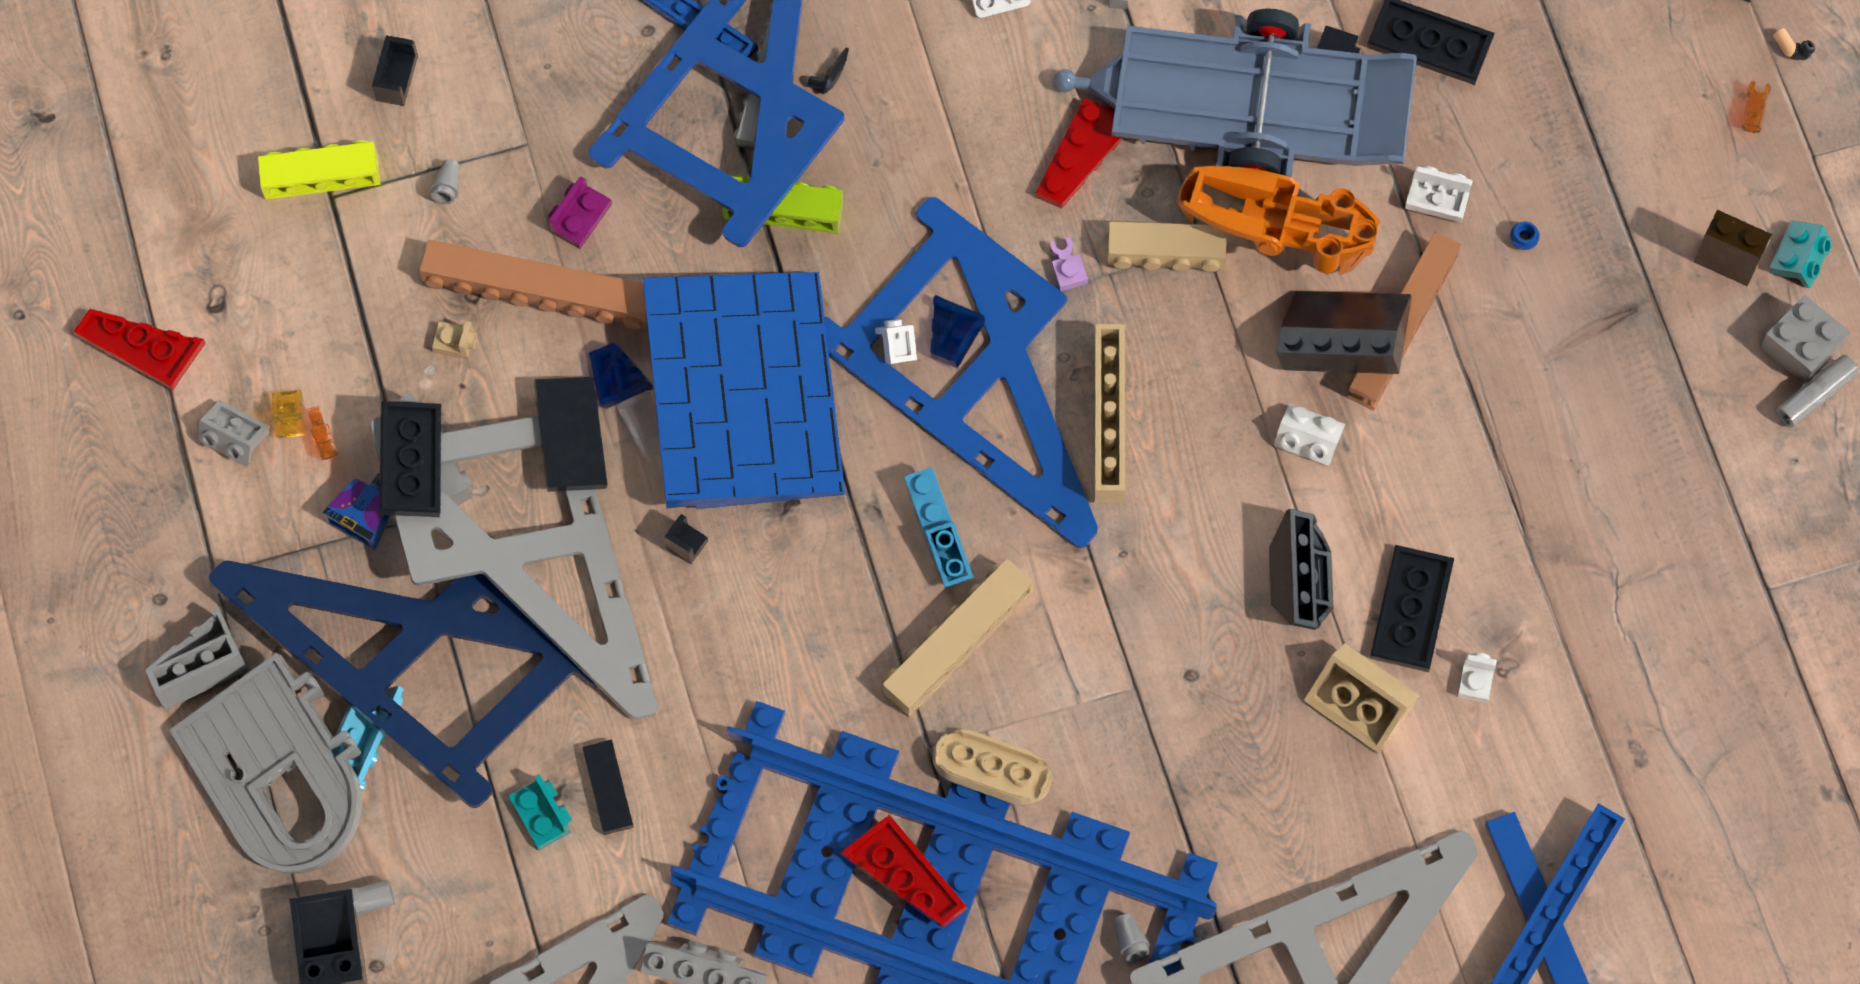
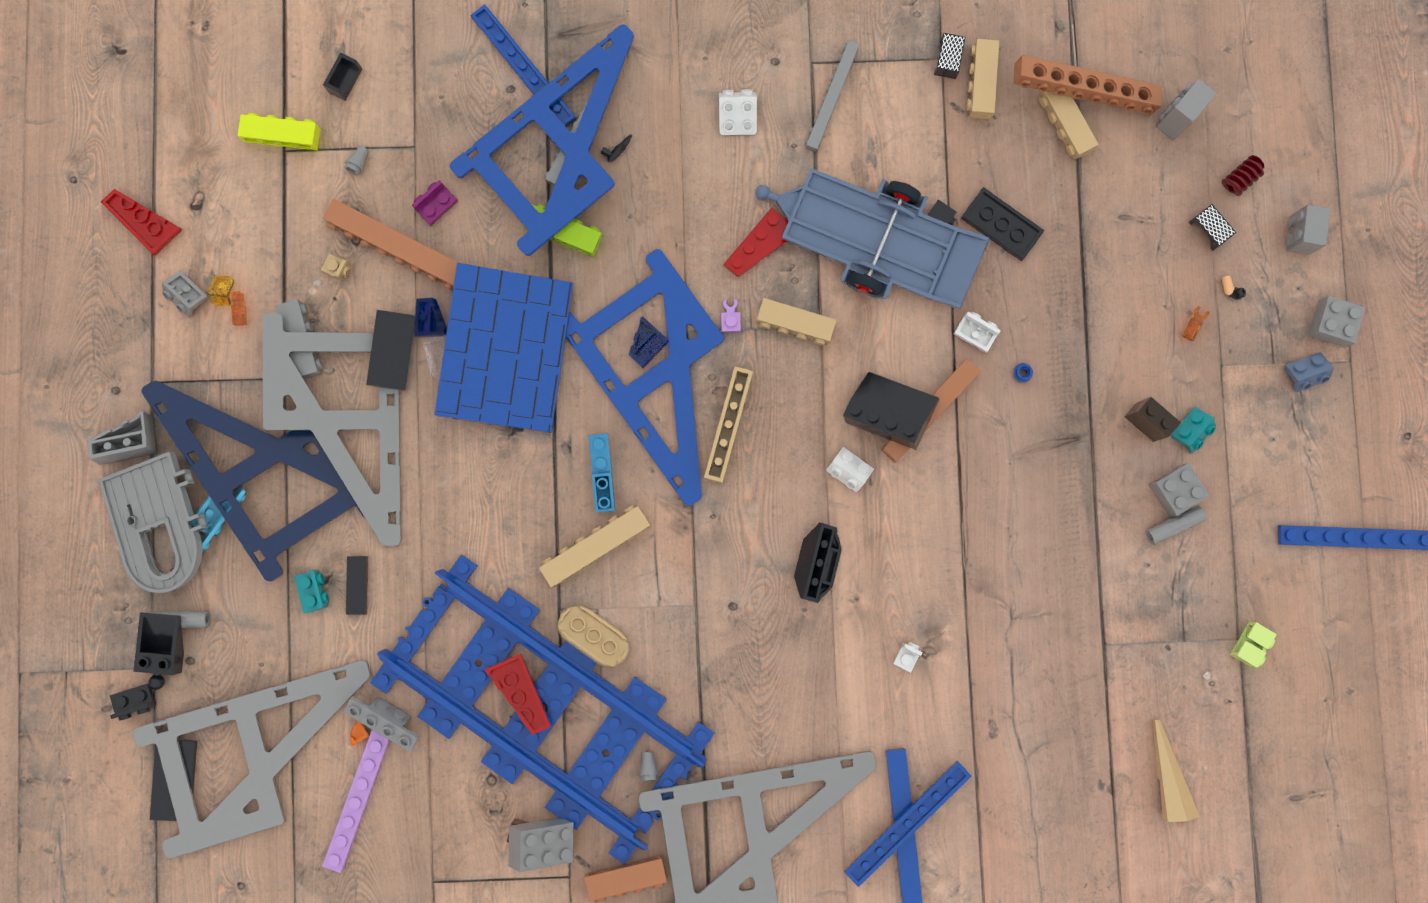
camera: 10 degrees right, 15 degrees up
(357, 512) = (247, 368): torso -> none
(410, 459) = (281, 346): black tile -> none
(685, 540) = (444, 438): black panel -> none
(898, 341) = (610, 341): white bracket -> none
(1280, 218) = (870, 323): orange piece -> none
(1361, 697) = (833, 651): tan slope -> none
(1412, 608) = (881, 599): black tile -> none

